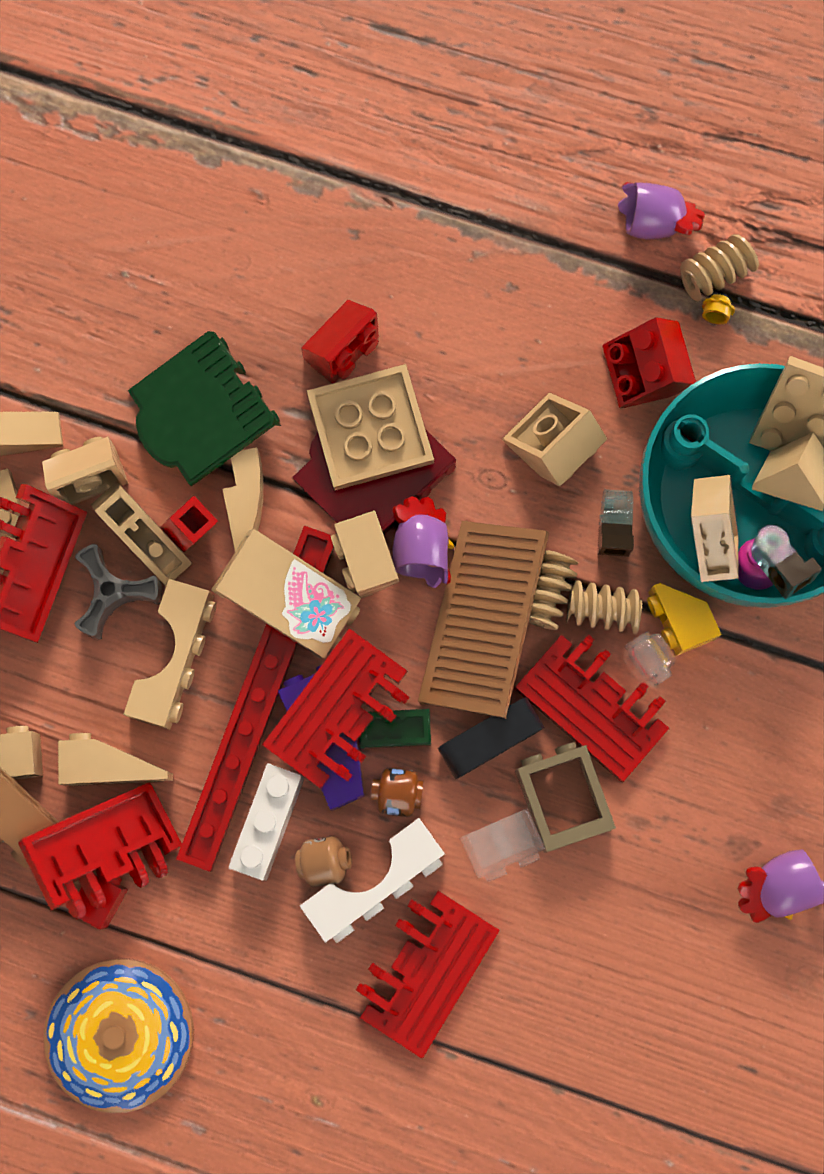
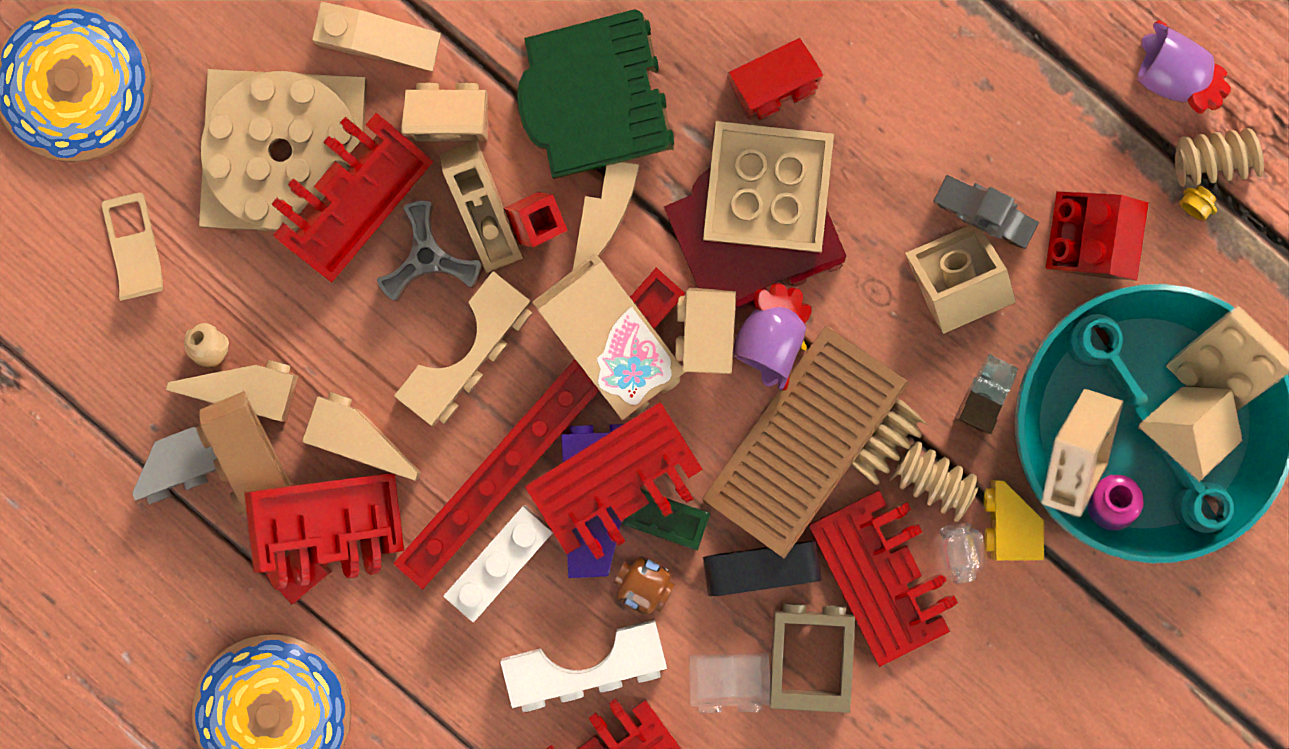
camera: 25 degrees right, 10 degrees up
(323, 861) = (540, 625): medium nougat head -> none
(553, 375) = (986, 210): none -> dark grey piece
(782, 562) = (1133, 517): leg -> none

